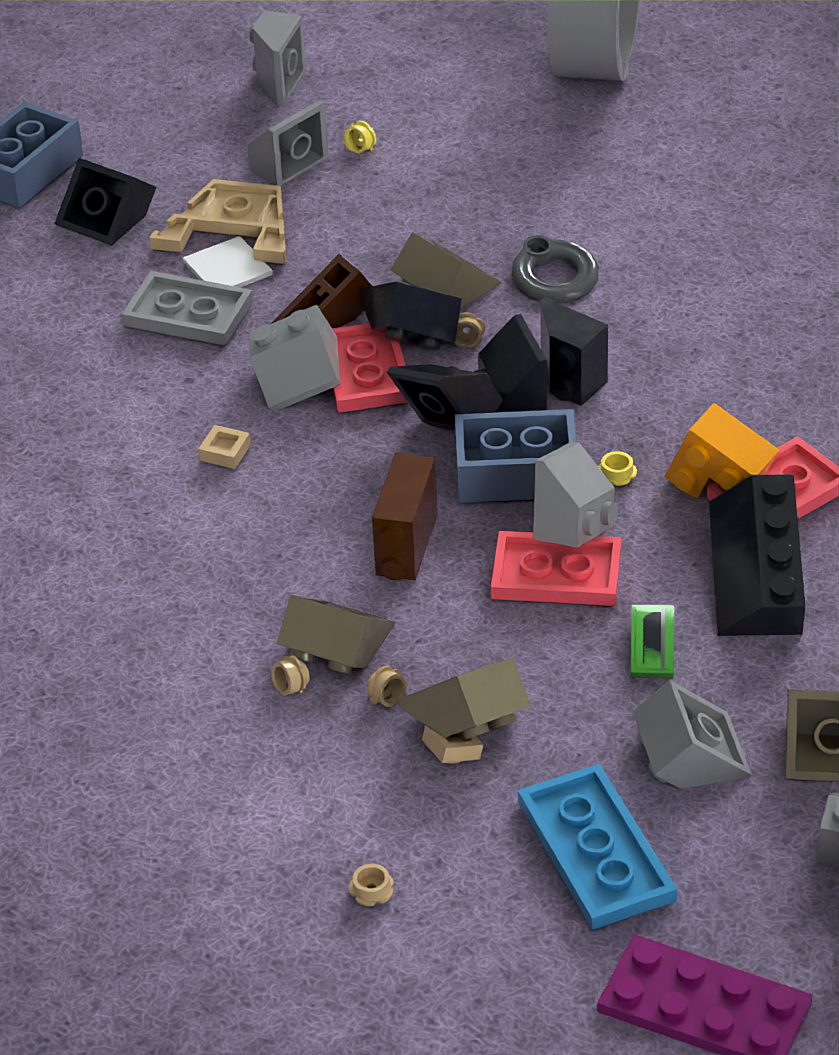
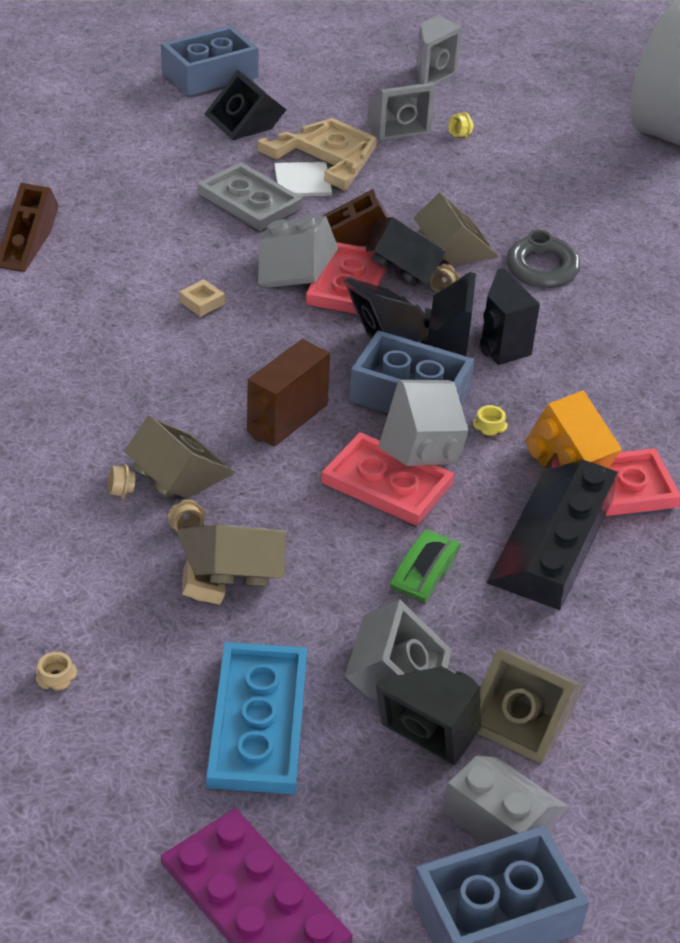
camera: 20 degrees right, 0 degrees up
(760, 771) = (432, 710): none -> pearl dark grey slope

